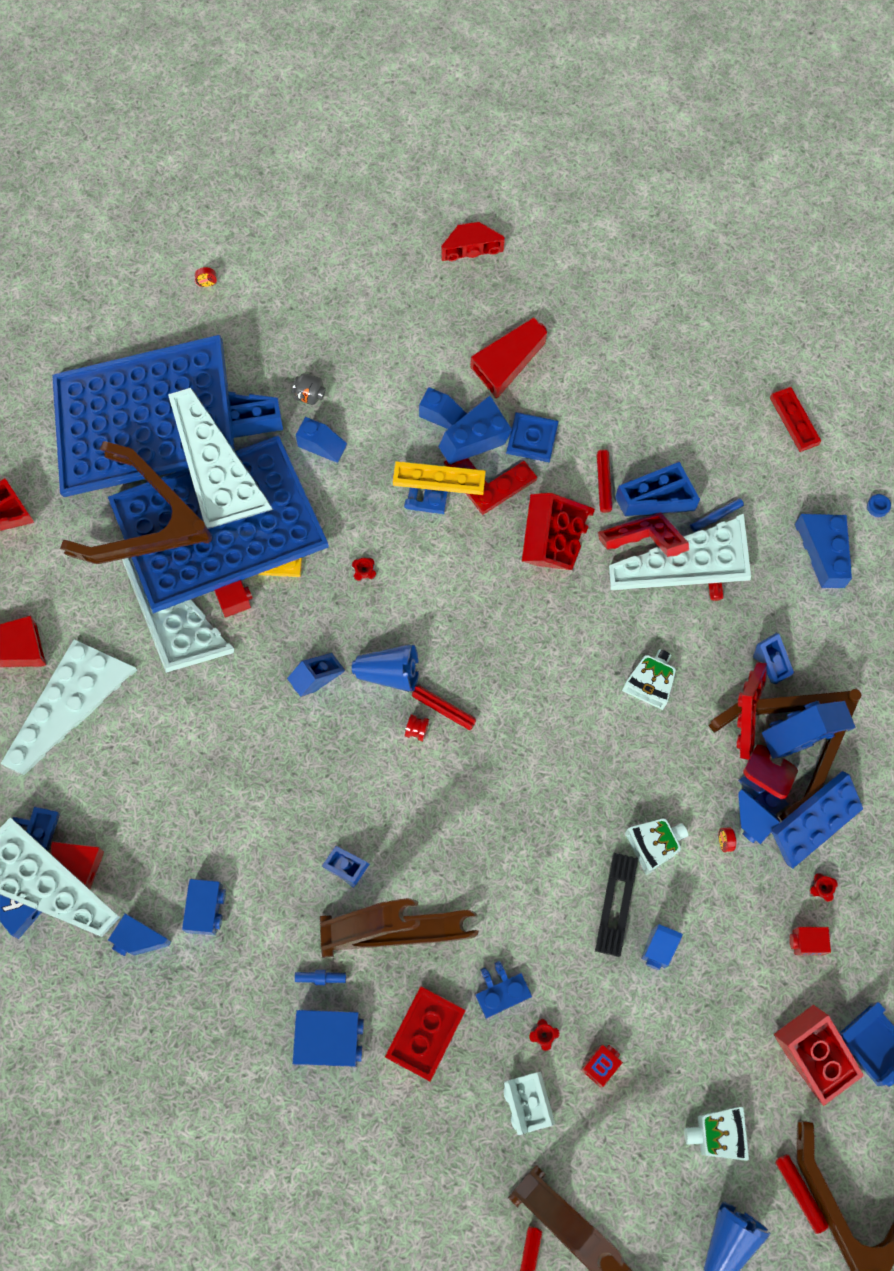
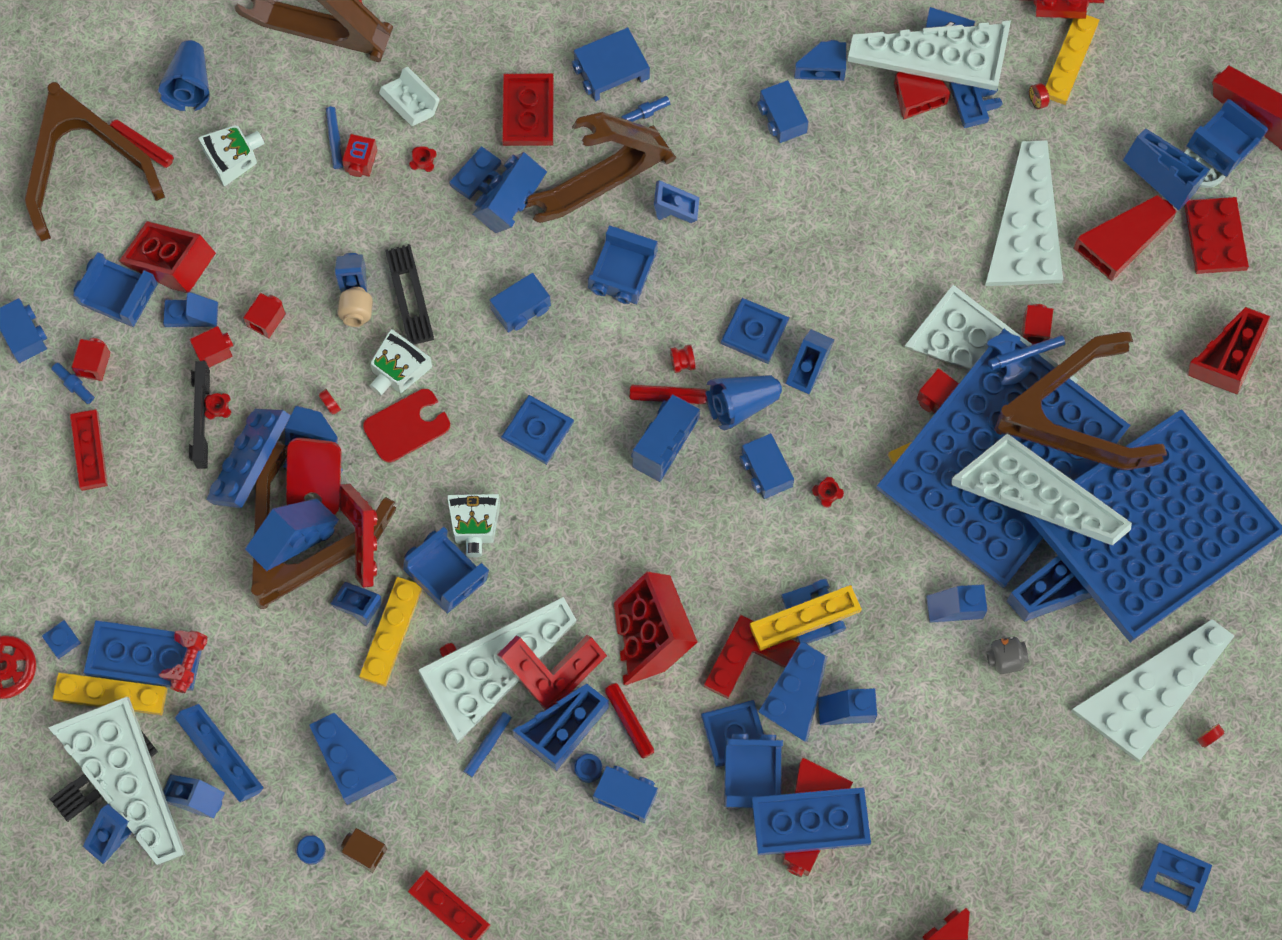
camera: 155 degrees right, 0 degrees up
(120, 611) = (1037, 323): none -> red brick
(161, 582) = (1011, 357): none -> blue piece
(236, 319) = (1147, 698): none -> light aqua wing
(285, 215) = (1180, 869): none -> blue plate
(343, 725) = (755, 330): none -> blue tile
(400, 607) = (766, 466): none -> blue brick
(422, 834) = (623, 265): none -> blue panel
(468, 667) = (665, 437): none -> blue wedge
(487, 948) = (509, 192): none -> blue wedge
(517, 340) = (811, 821): none -> blue plate
(525, 844) = (520, 303): none -> blue brick
(537, 398) = (751, 769): none -> blue panel
(563, 732) = (537, 429): none -> blue tile
(615, 1103) = (334, 137): none -> blue piece
(634, 430) = (625, 793): none -> blue brick
(650, 463) = (588, 768): none -> blue tile
(670, 913) = (355, 307): none -> tan head
(675, 788) = (401, 429): none -> red piece
(693, 650) = (444, 570): none -> blue panel
(752, 948) = (265, 315): none -> red brick
(753, 630) = (391, 632): none -> yellow plate
(816, 988) = (193, 312): none -> blue slope
(842, 483) = (363, 849): none -> reddish brown brick
(854, 854) = (201, 380): none -> black container

